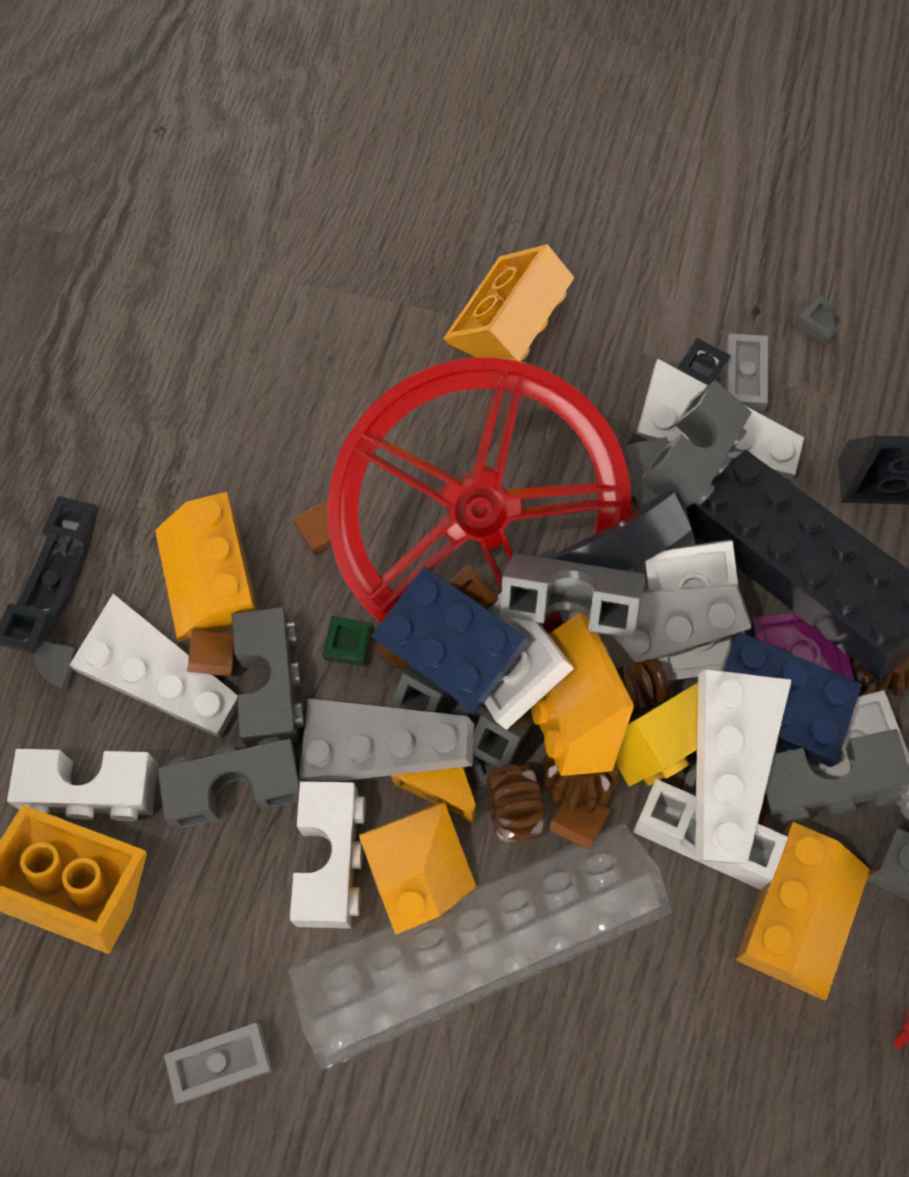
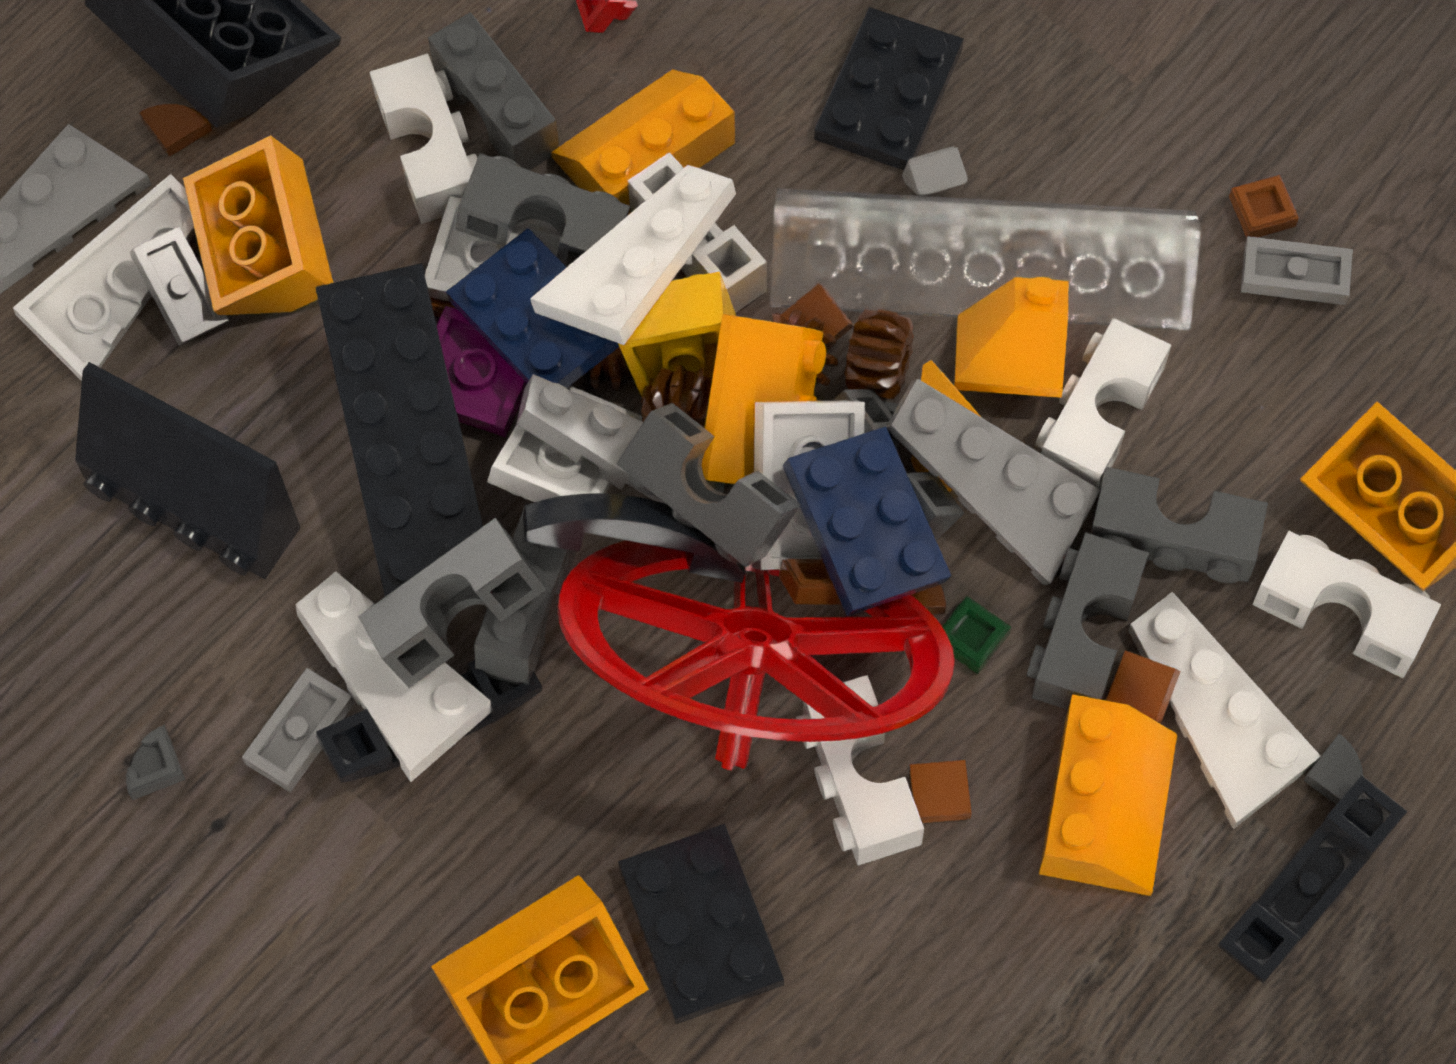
camera: 155 degrees left, 0 degrees up
(269, 1121) = (1263, 207): none -> dark orange tile
(403, 521) = (873, 816): none -> white arch
(444, 416) = (700, 923): none -> black plate
(554, 997) = (935, 171): none -> light grey slope
(639, 1078) = (888, 89): none -> black plate

